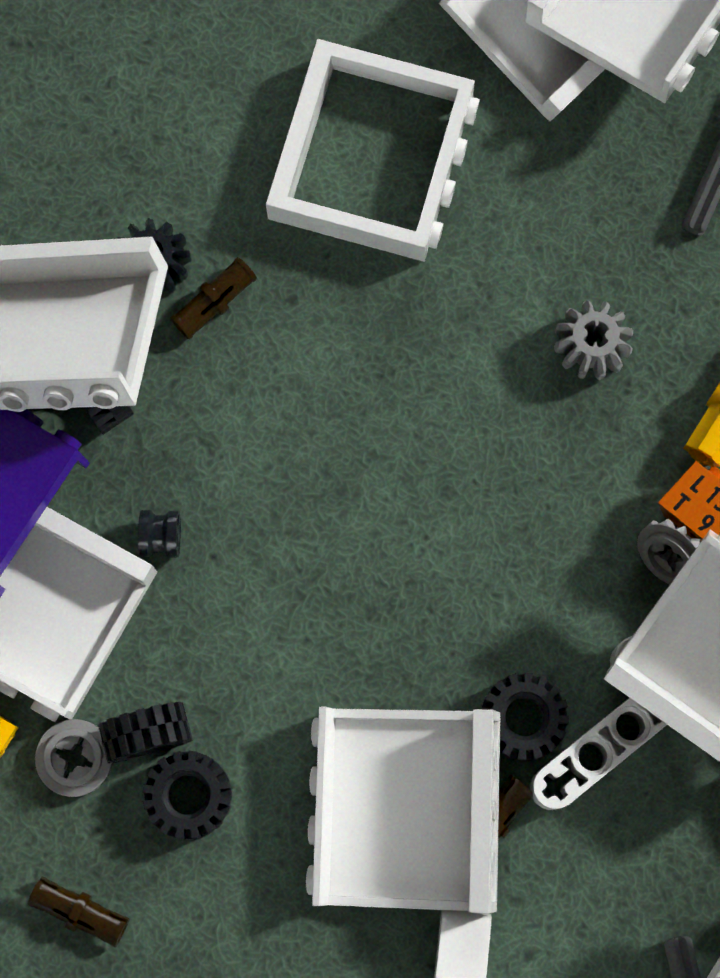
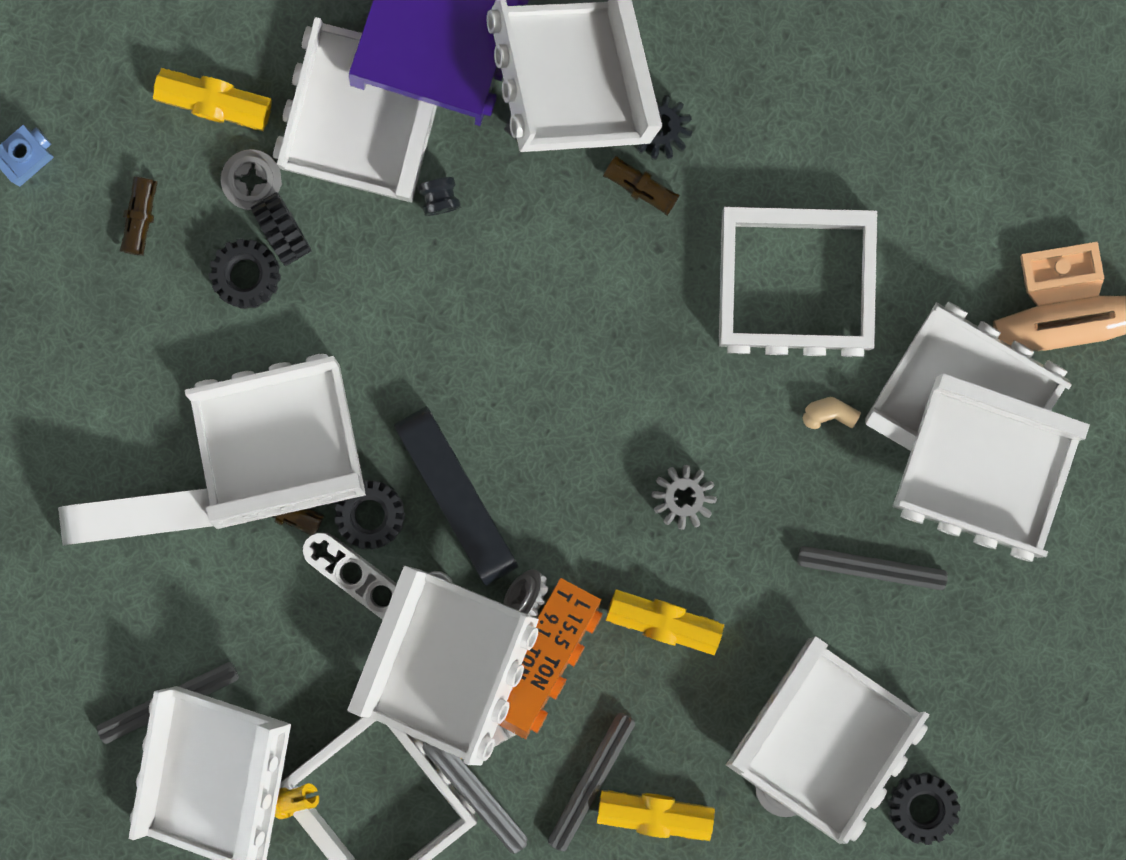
camera: 70 degrees right, 10 degrees up
(525, 606) = (456, 495): none -> black beam
(530, 155) = (828, 409): none -> tan arm

